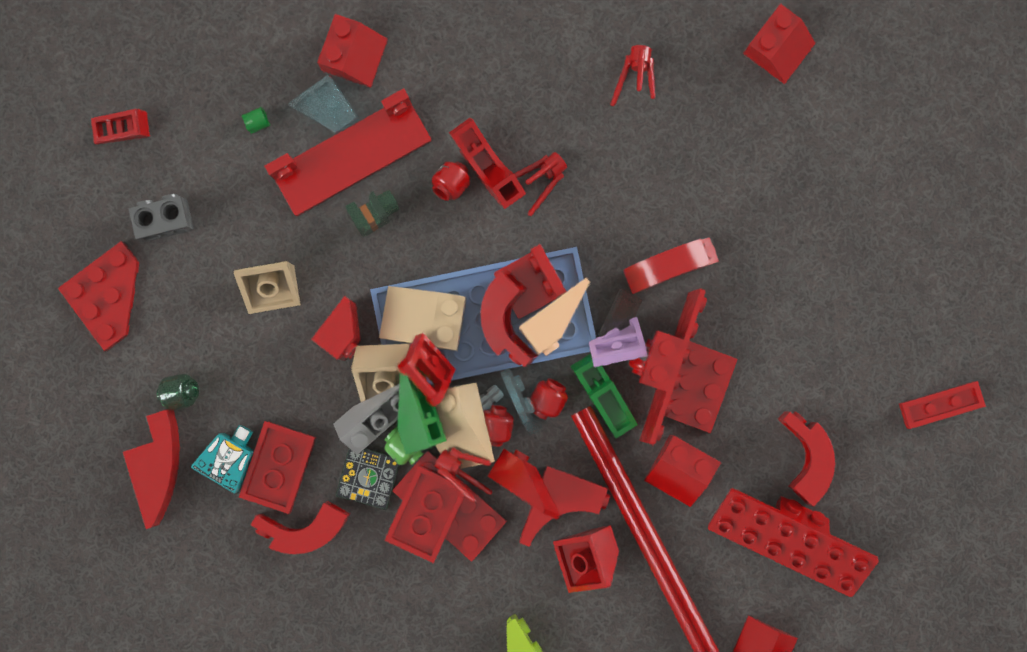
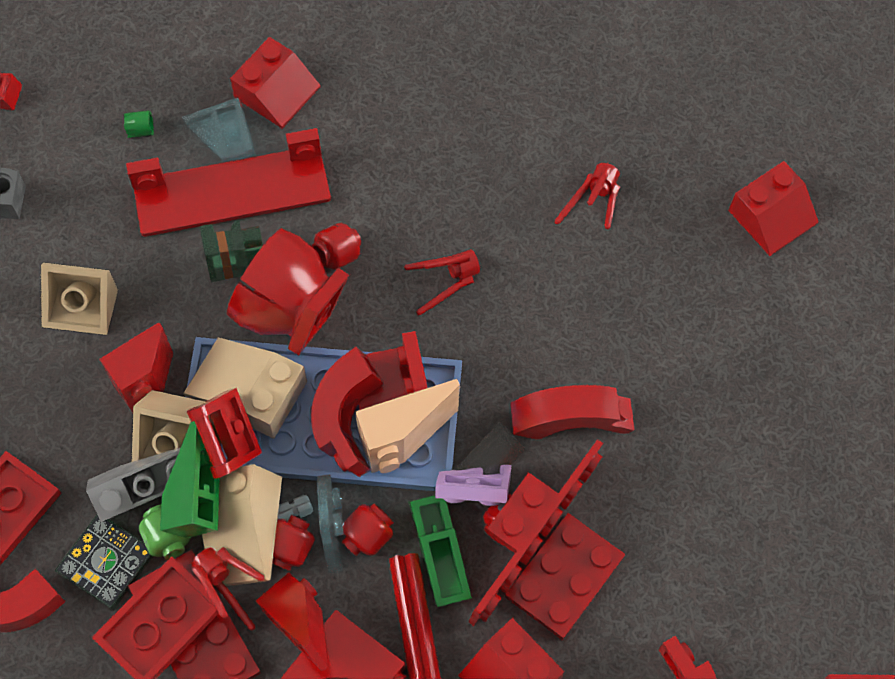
camera: 15 degrees right, 20 degrees down
(431, 237) = (289, 291): none -> red plate
(486, 165) = (387, 248): red arch -> none

